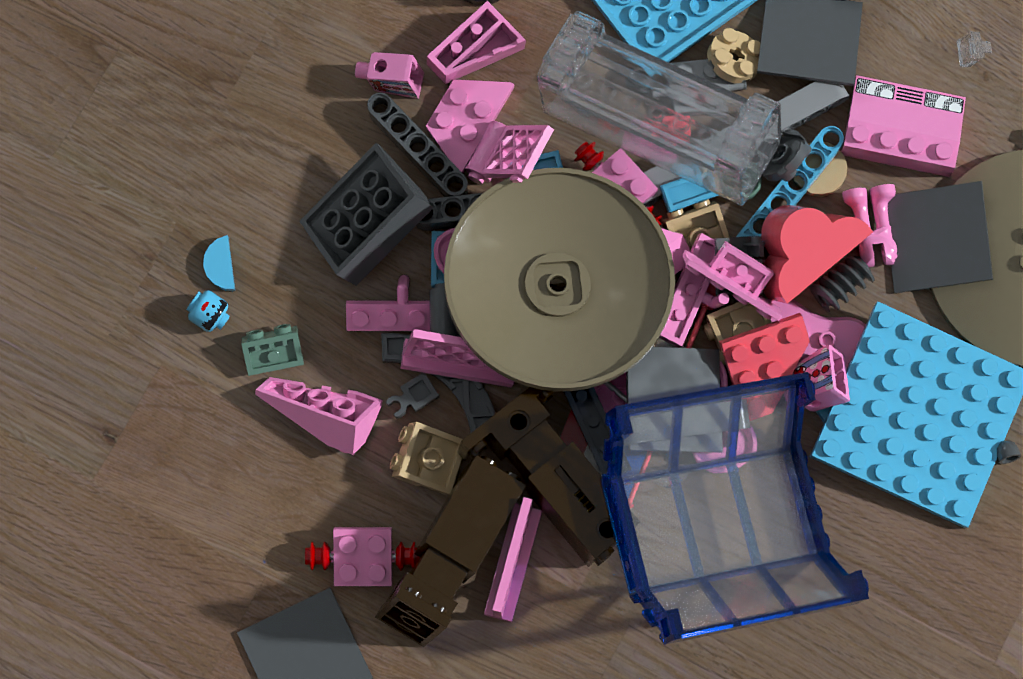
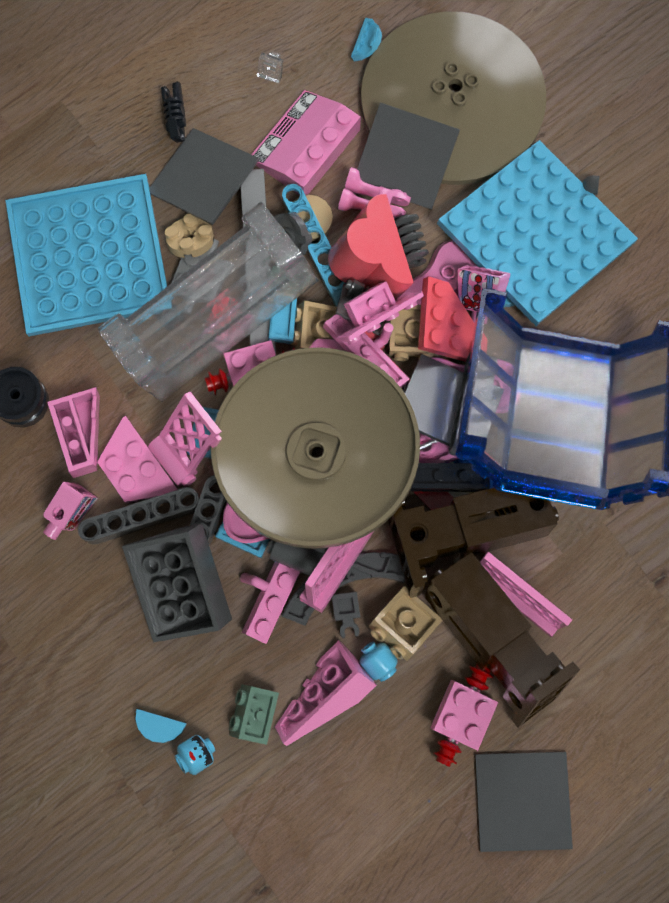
camera: 70 degrees left, 0 degrees up
(378, 448) = (378, 661): none -> medium azure head

